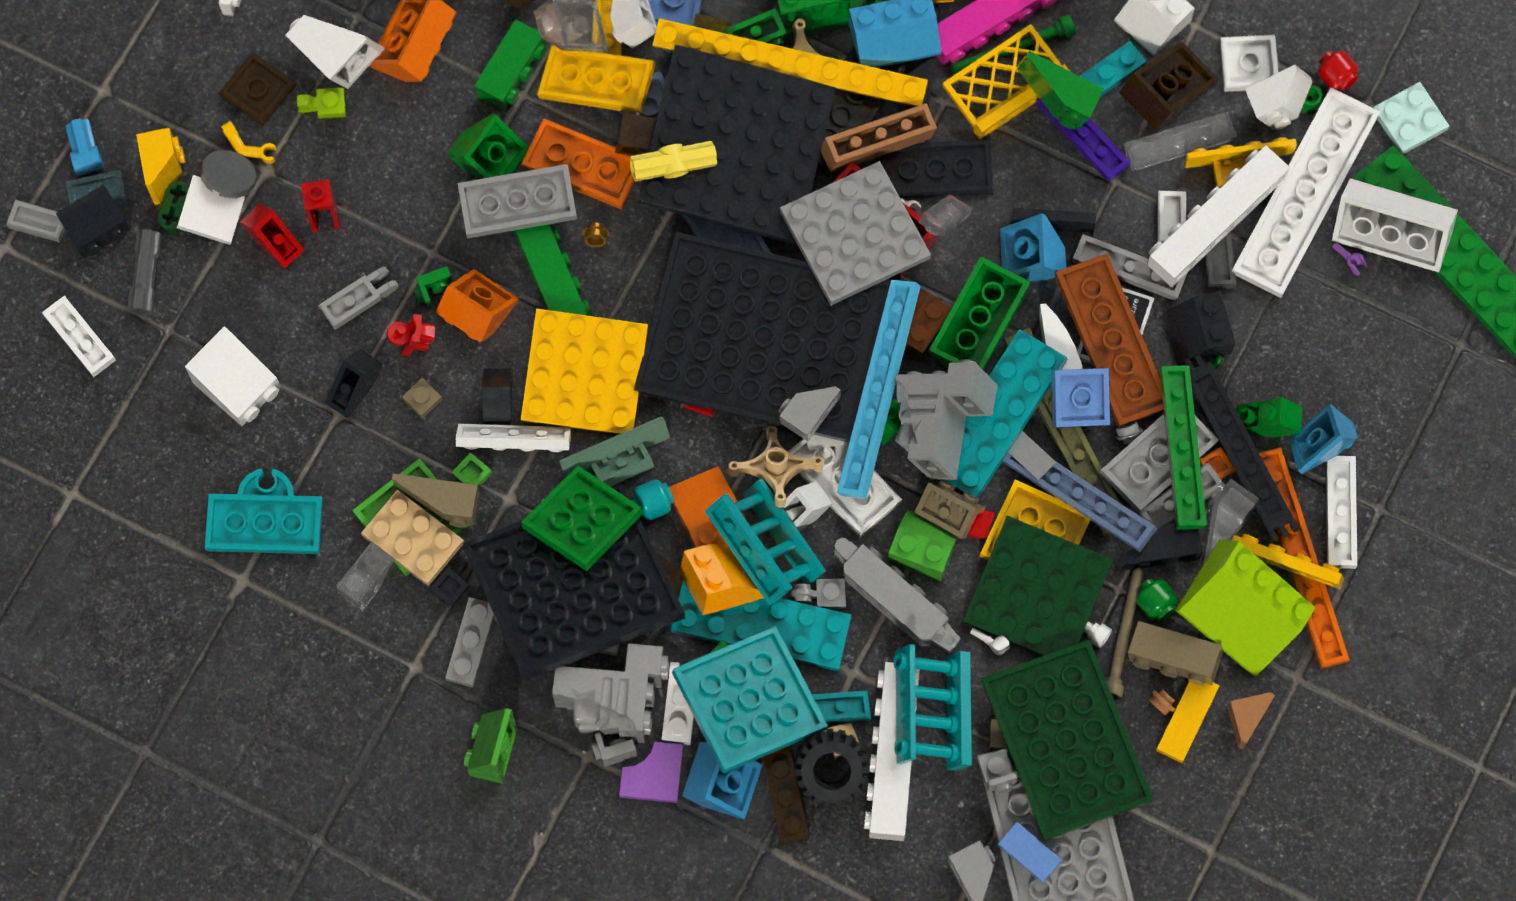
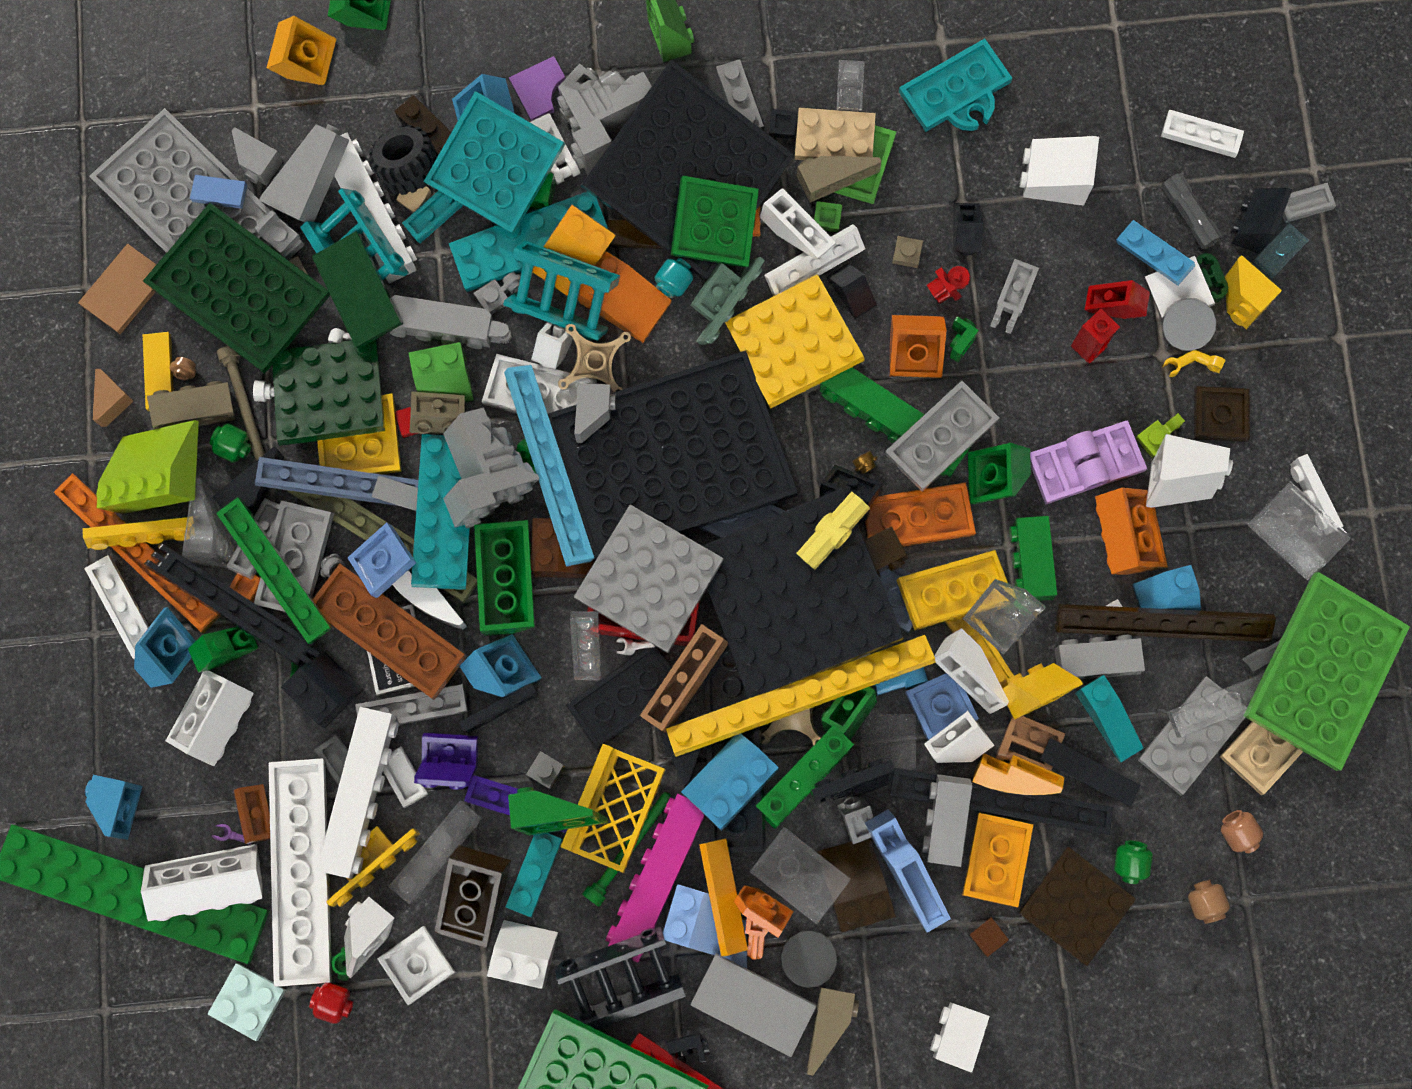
camera: 150 degrees right, 5 degrees up
(85, 153) = (1311, 272): dark azure piece -> none
(207, 253) = (1155, 252): none -> dark azure plate
(404, 116) = (1086, 462): none -> lavender plate
(509, 472) = (795, 225): none -> white slope
(626, 217) = (862, 486): none -> black bracket
(711, 23) = (893, 700): clear yellow plate -> none
(942, 805) = (307, 174): none -> light grey slope
(954, 659) = (357, 290): none -> dark green tile
(1044, 150) = (545, 770): none -> light grey plate
(1126, 197) = (447, 760): none -> dark purple bracket
(1177, 822) = (120, 290): none -> medium nougat tile
(1315, 365) = (209, 717): none -> white slope
(1319, 261) = (253, 813): none -> dark orange plate
(1438, 337) = (113, 804): none -> dark azure slope

